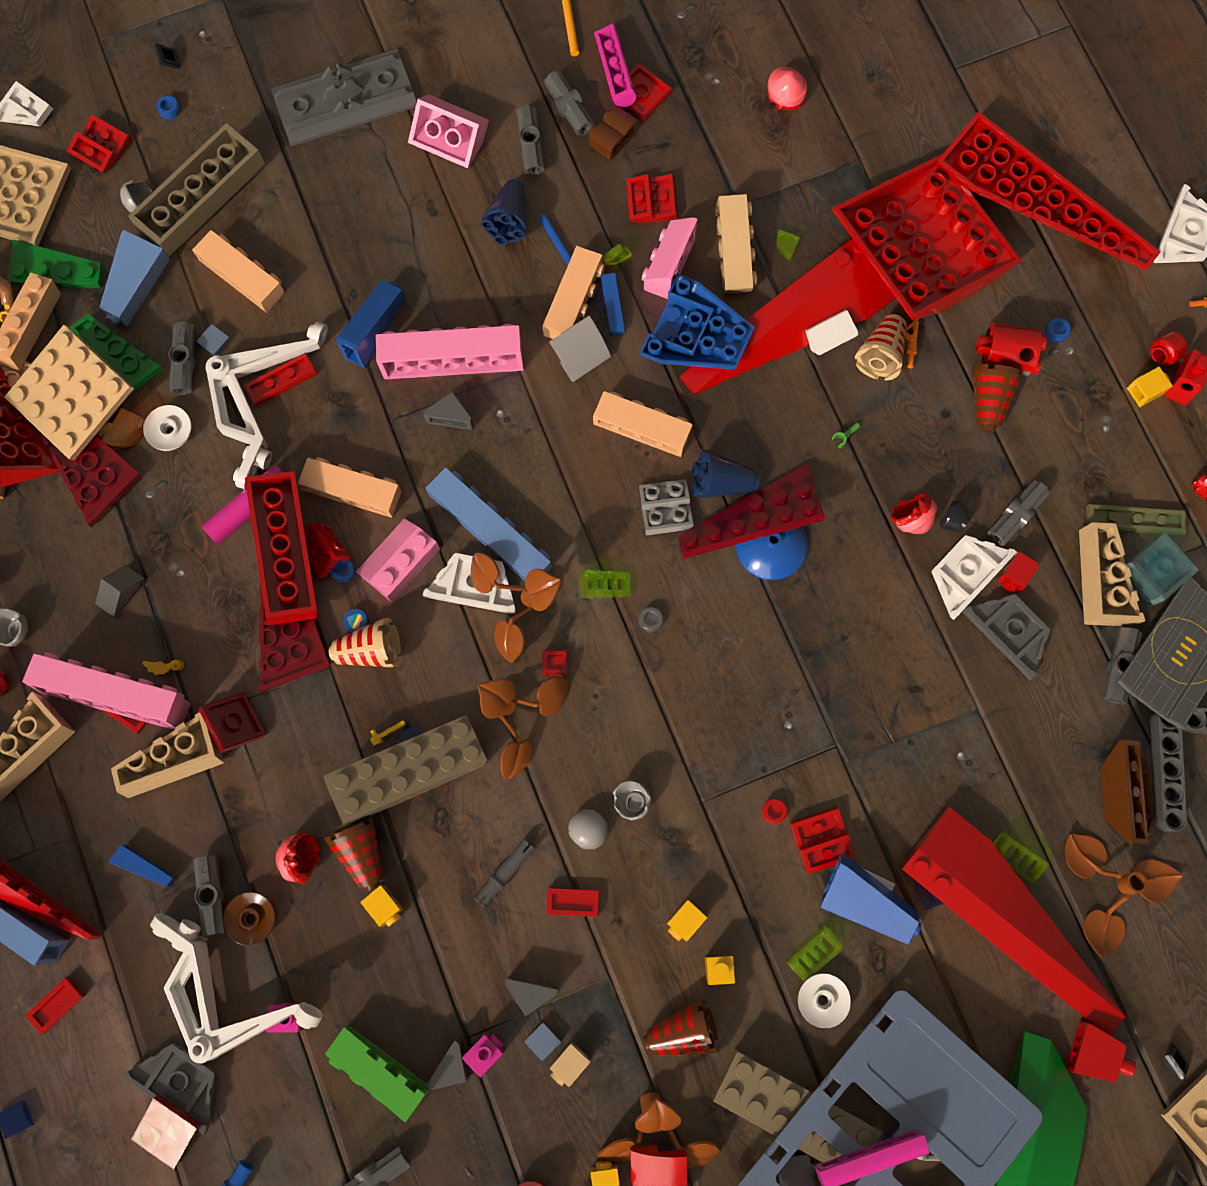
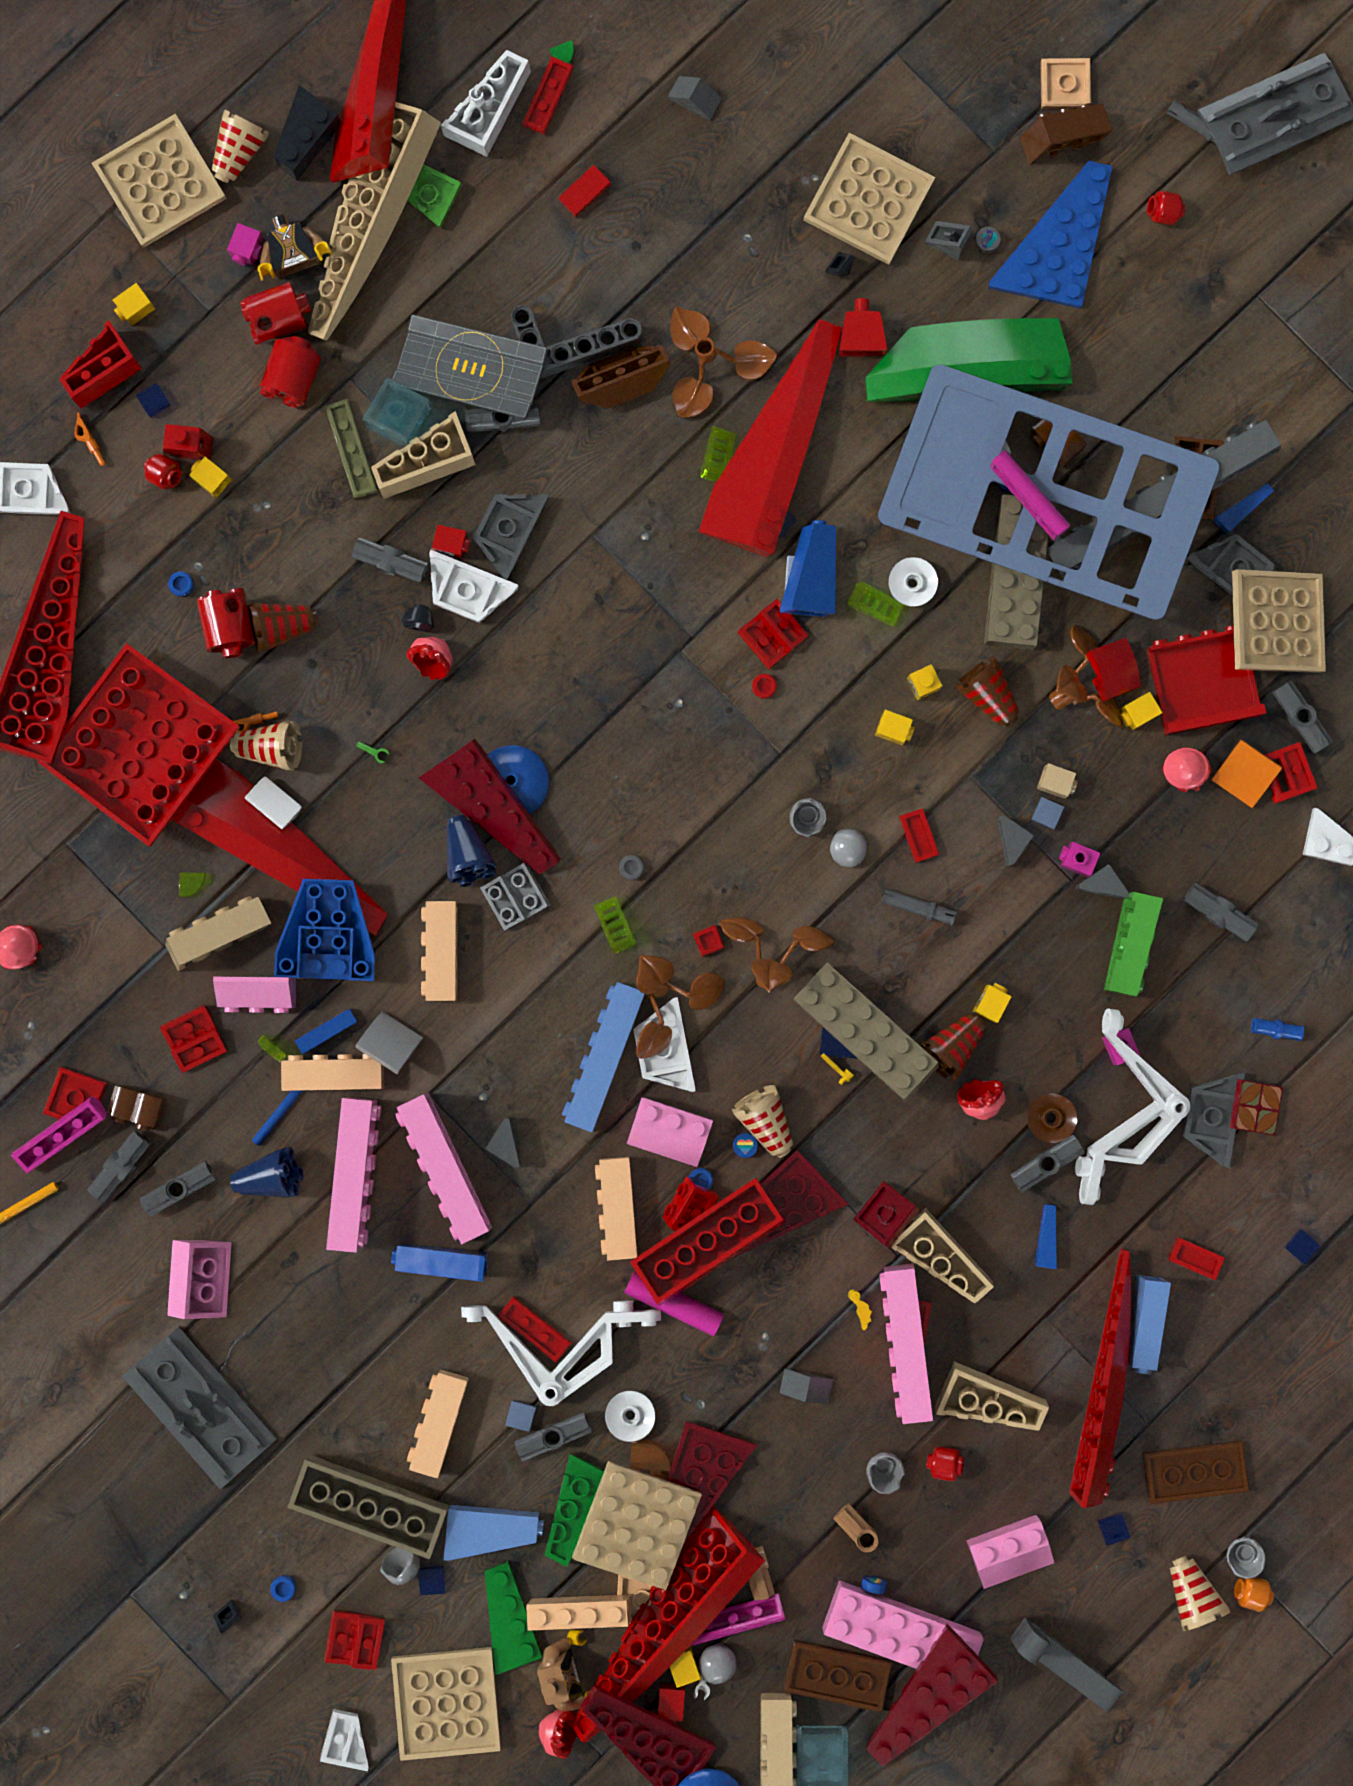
camera: 115 degrees left, 10 degrees up
(114, 220) = (431, 1581): none -> clear blue tile
(479, 276) = (352, 1174): none -> bright pink brick

